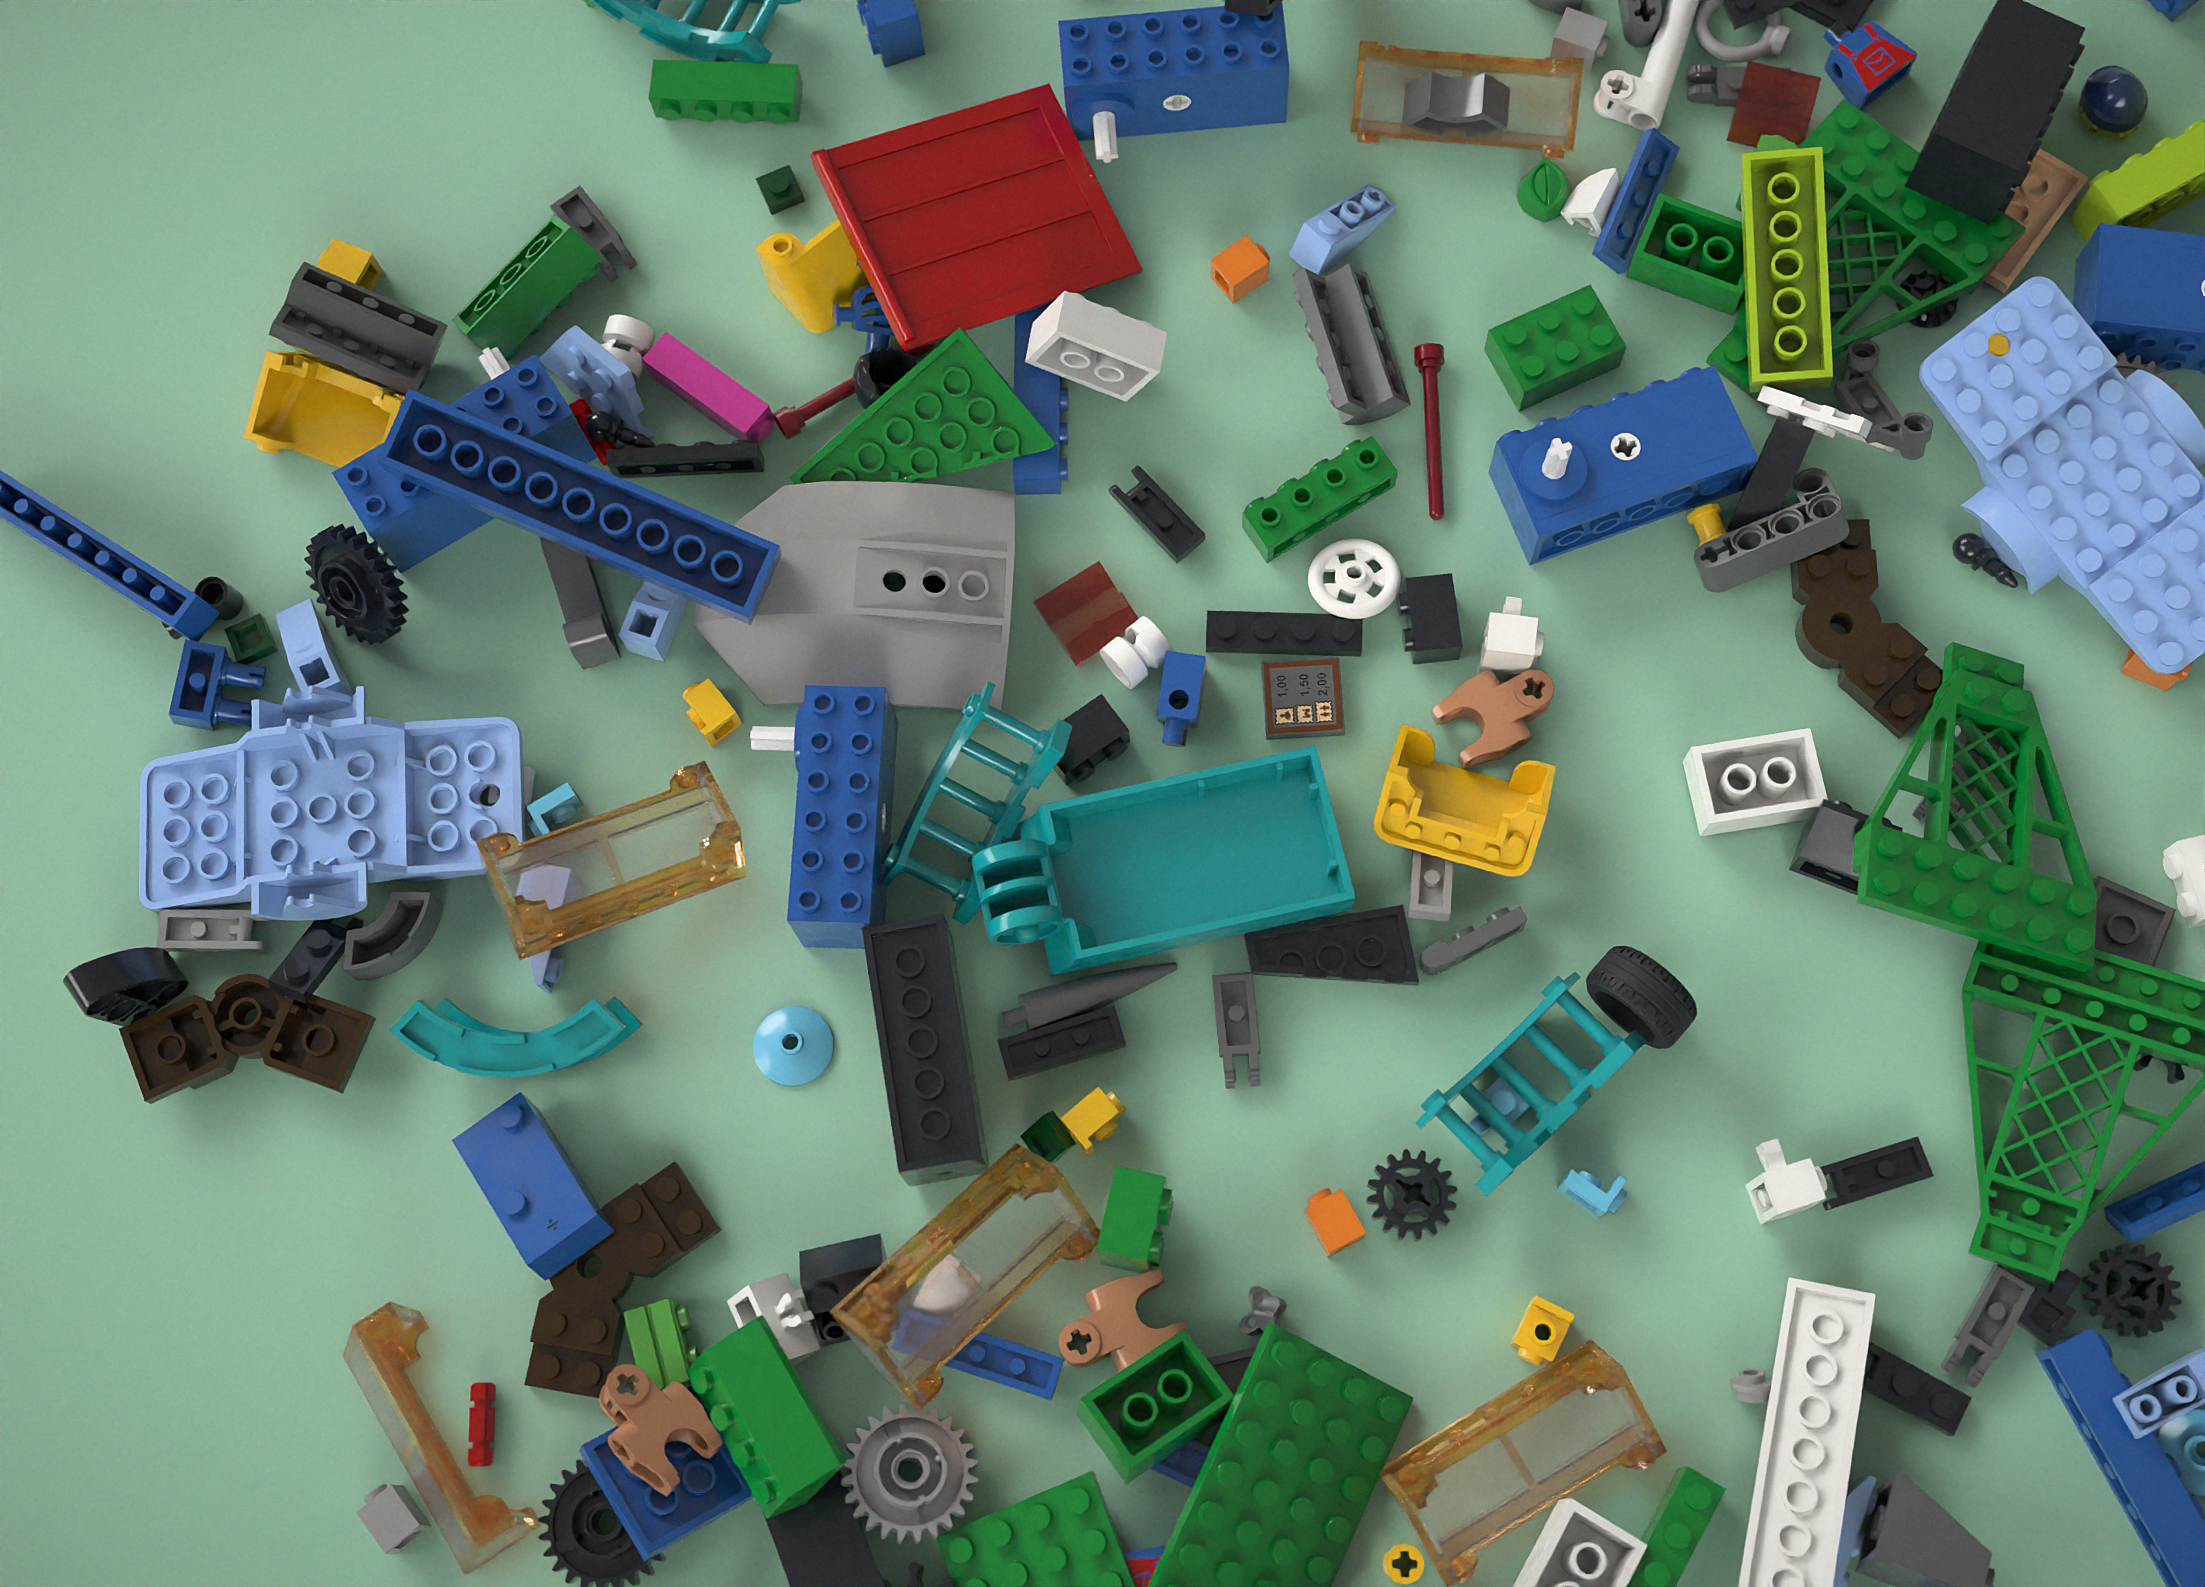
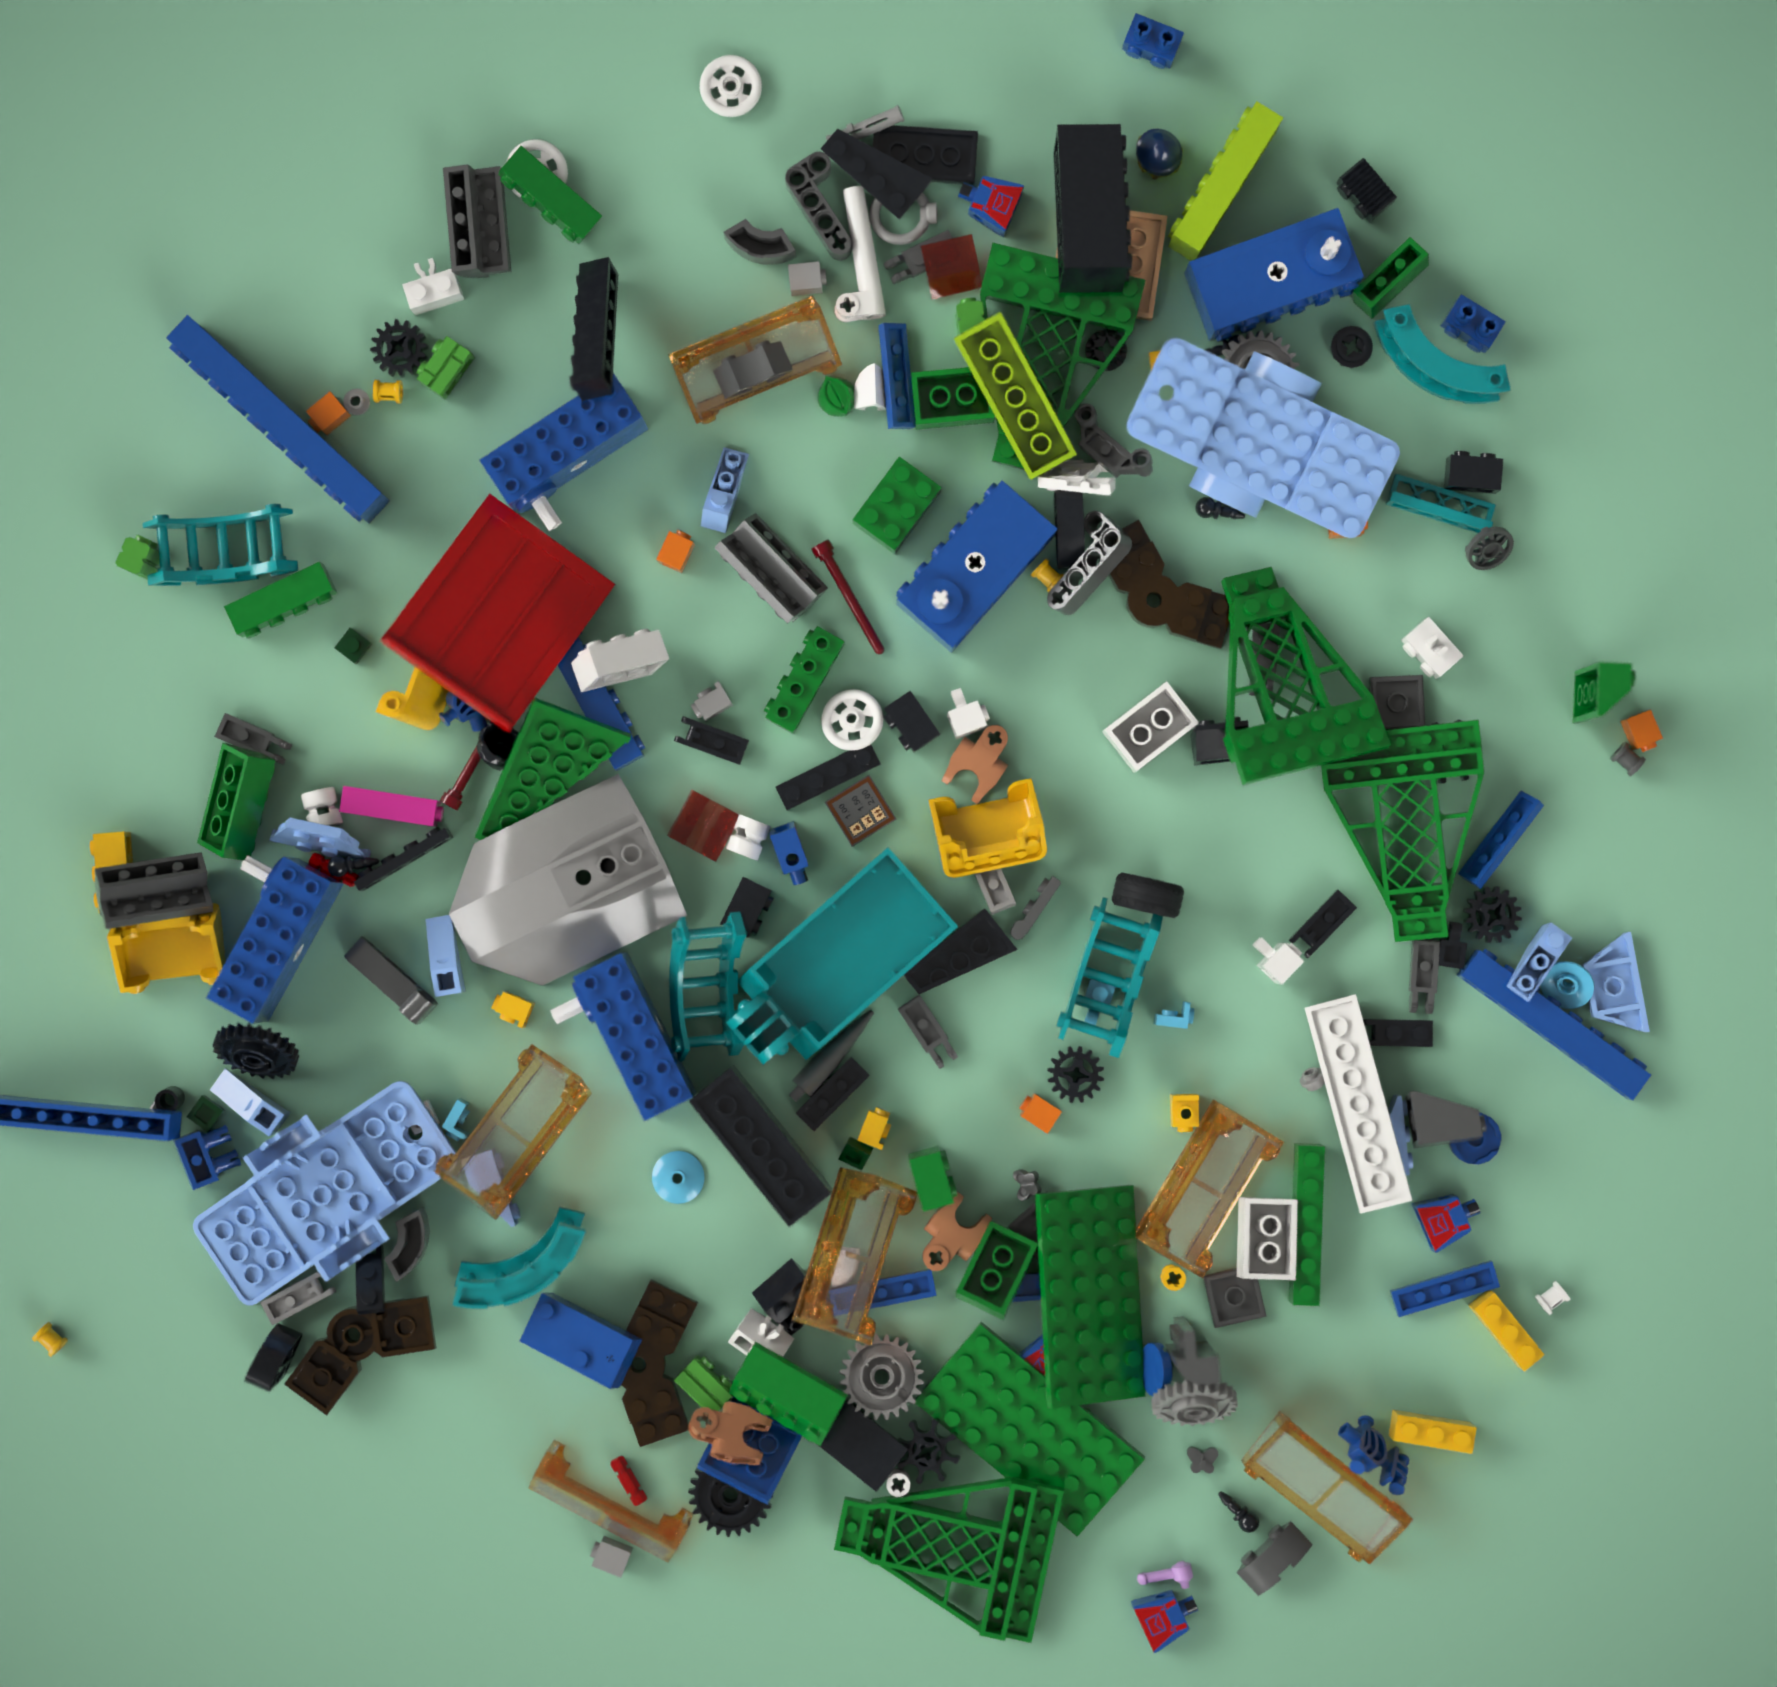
camera: 35 degrees left, 15 degrees up
(579, 506) = (374, 942): blue brick -> none
(1183, 467) = (711, 702): none -> light grey brick

